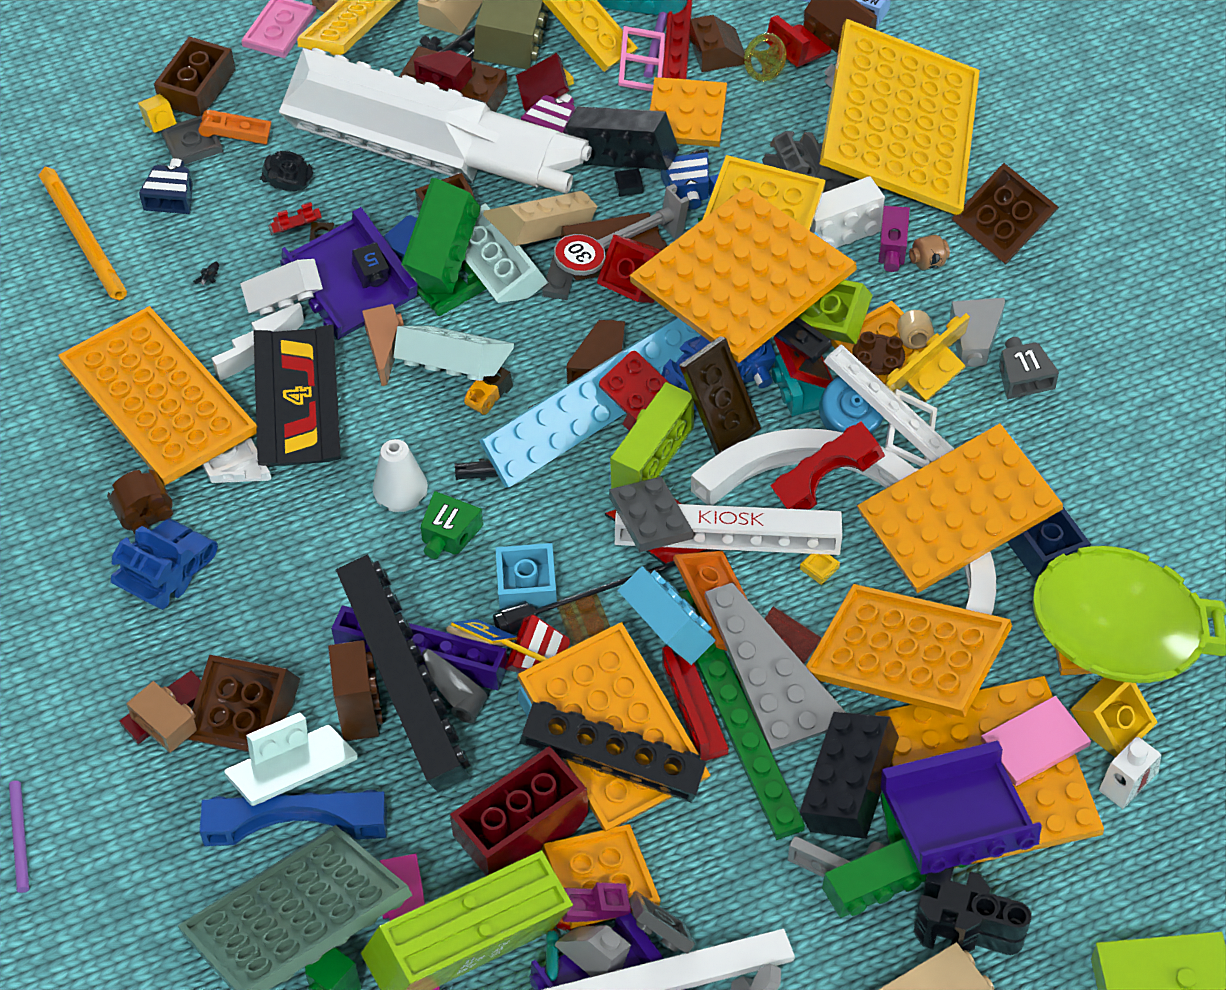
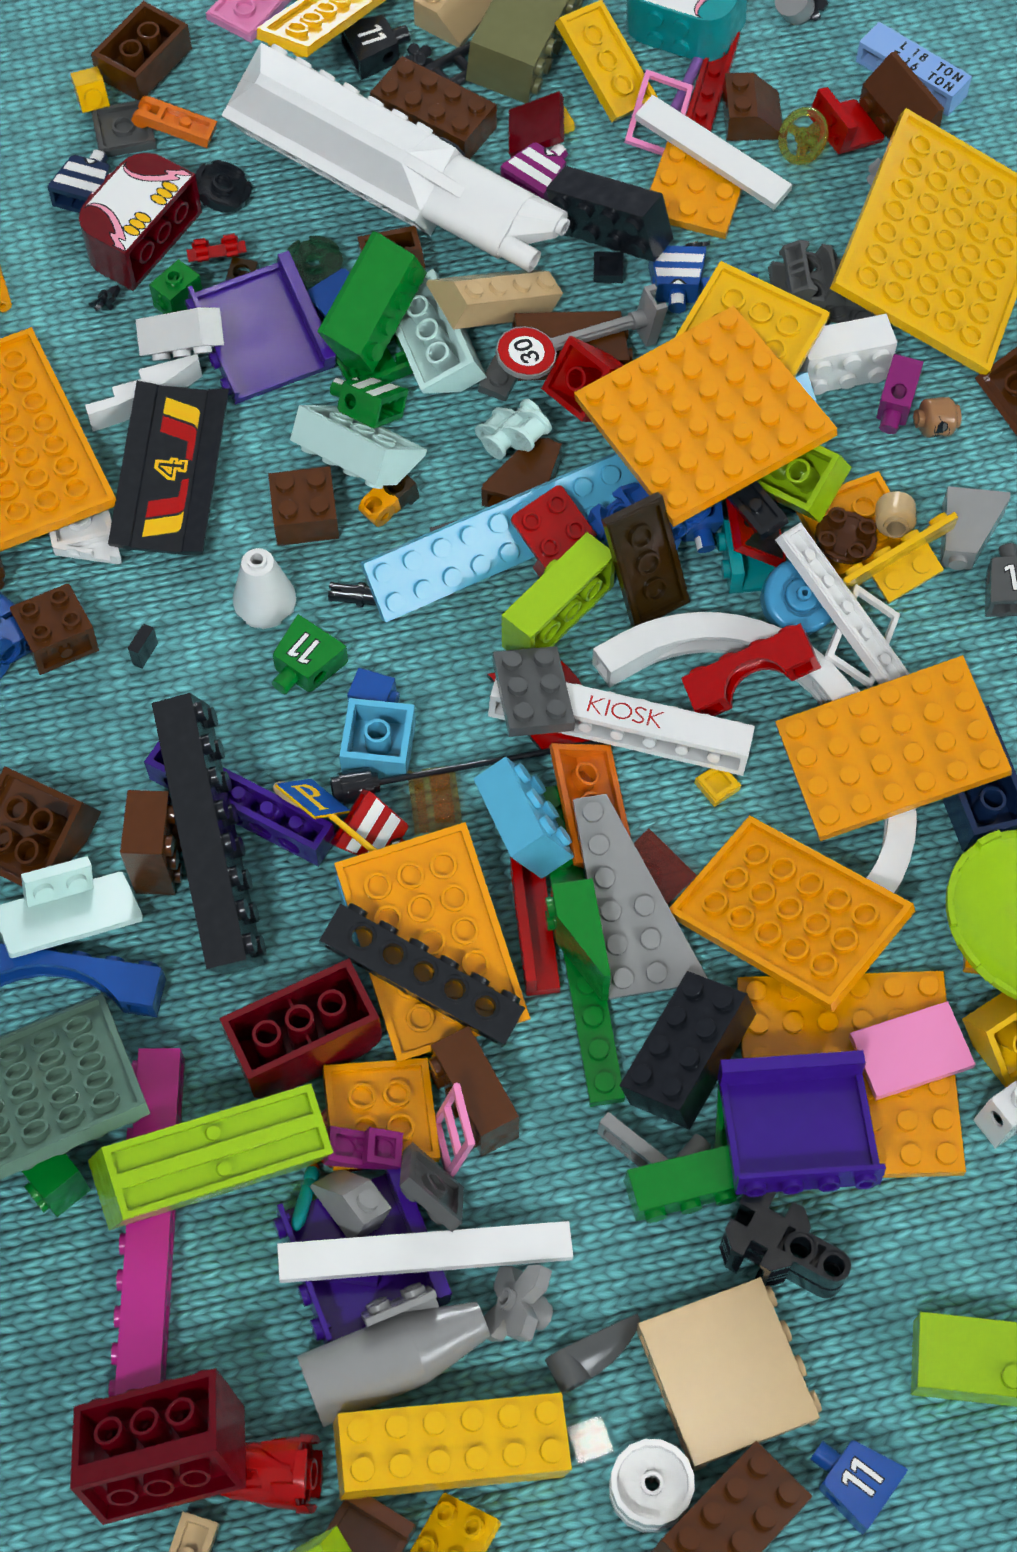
camera: 10 degrees right, 10 degrees up
(223, 204) = (138, 216): none -> dark red brick
(227, 539) = (55, 628): none -> reddish brown bracket
(265, 254) = (171, 287): none -> green head
(305, 540) = (142, 645): none -> black tile
(370, 265) = (286, 323): black brick -> none
(381, 332) = (283, 400): nougat slope -> none
(385, 207) = (314, 249): none -> clear green plate
(389, 43) = (373, 44): none -> black torso
(417, 407) = (303, 506): none -> reddish brown brick
(444, 69) = (423, 93): dark red slope -> none
(454, 314) = (370, 400): none -> green torso
(456, 687) = (272, 863): dark grey piece -> none
(511, 536) = (373, 686): none -> blue brick
(581, 316) = (513, 429): none -> light aqua axle
(658, 858) = (460, 1152): none -> bright pink window
(677, 841) = (489, 1109): none -> reddish brown brick
(695, 79) = (713, 152): none -> white tile
(737, 696) = (578, 931): none -> green slope

